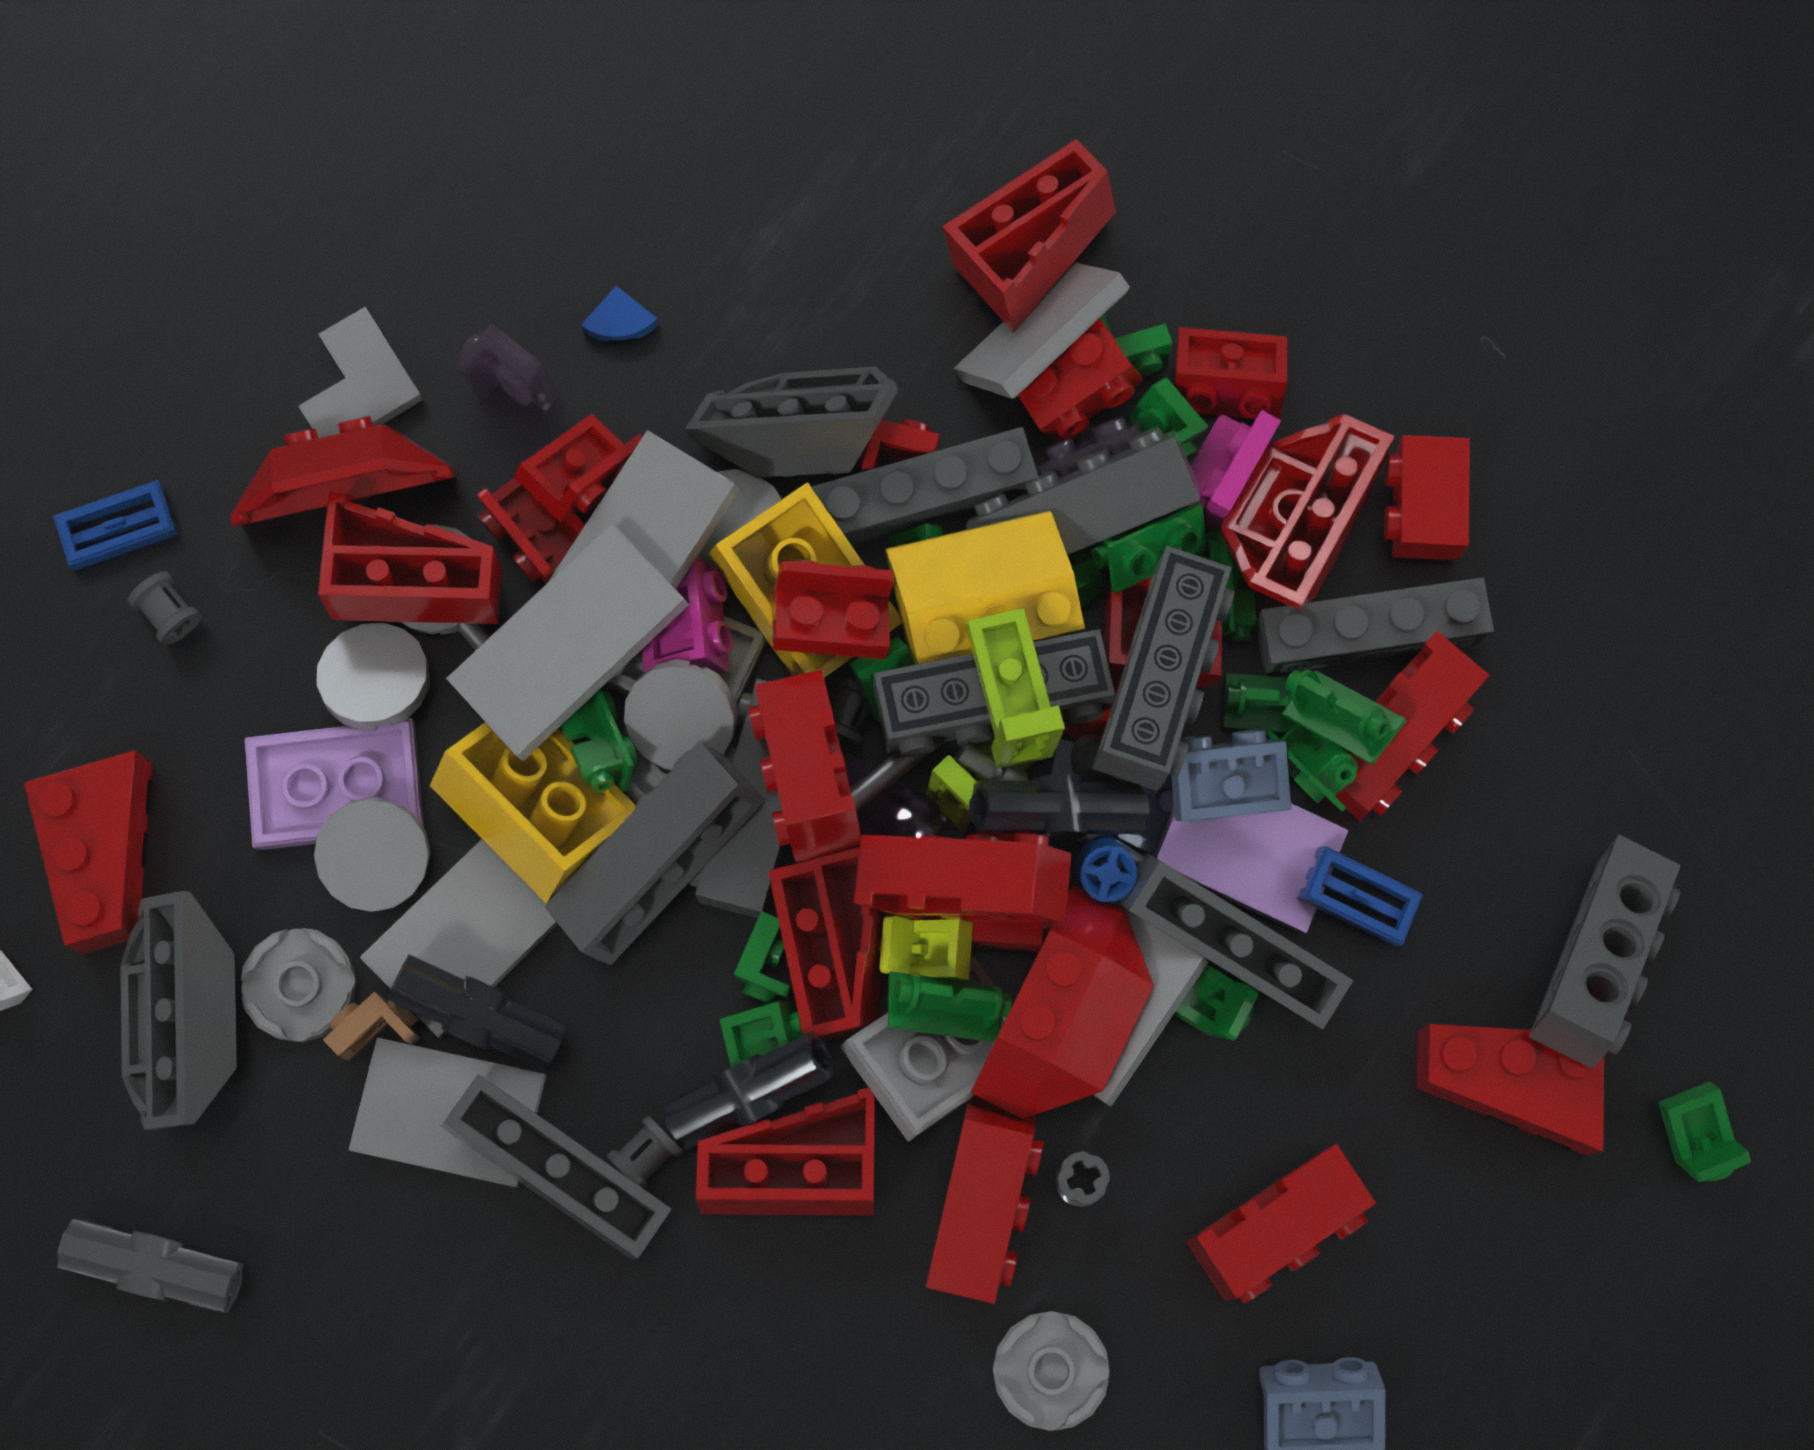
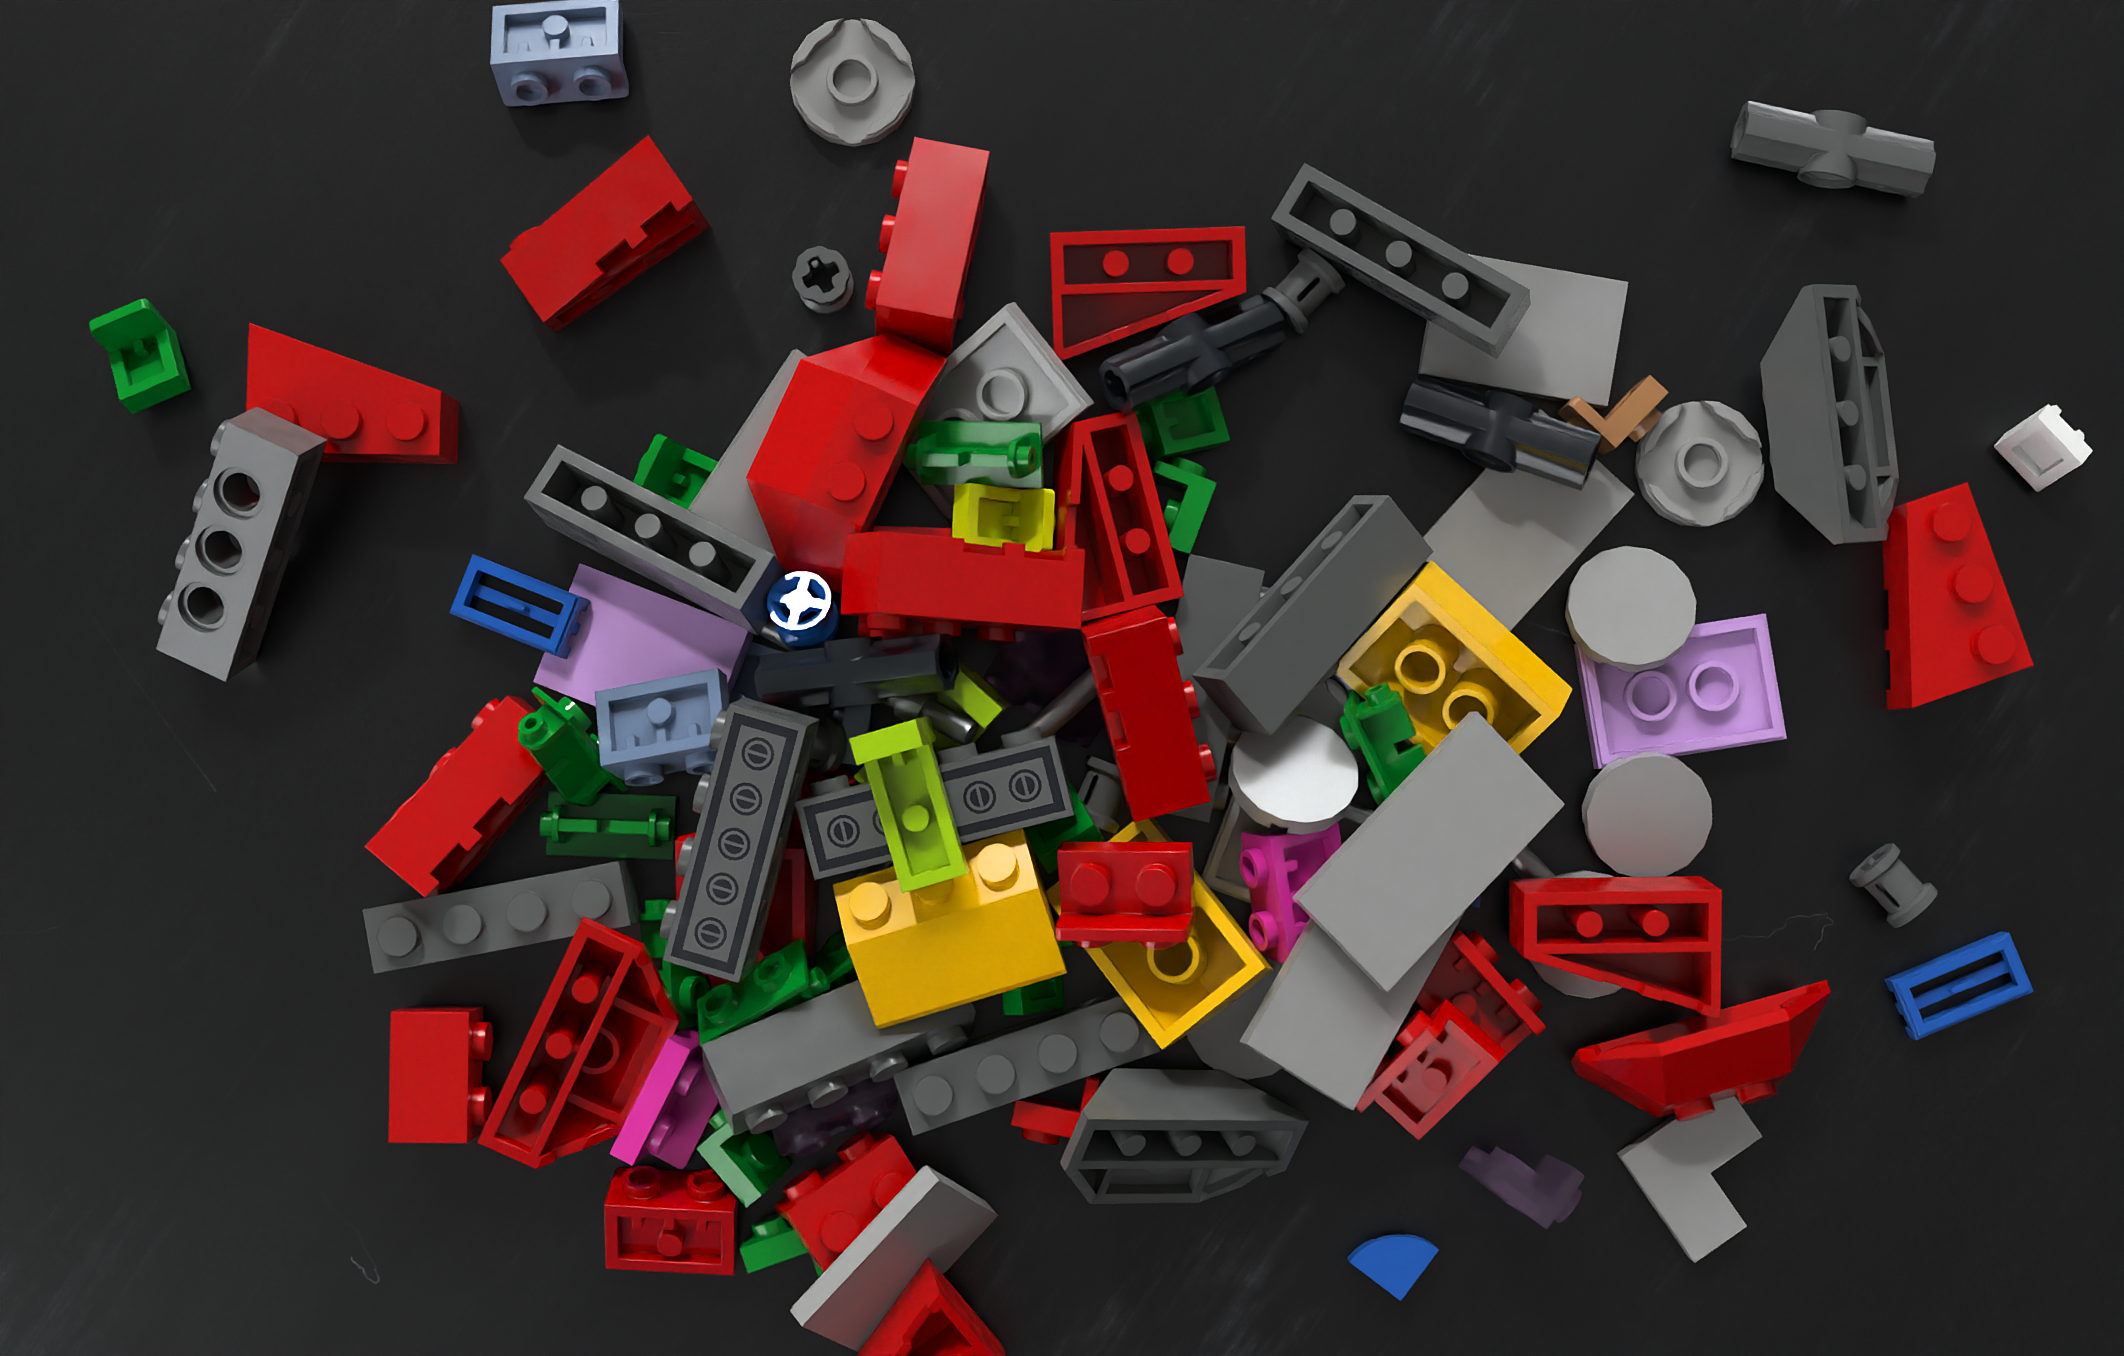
camera: 175 degrees right, 10 degrees up
(1341, 715) = (535, 797): green hinge -> none

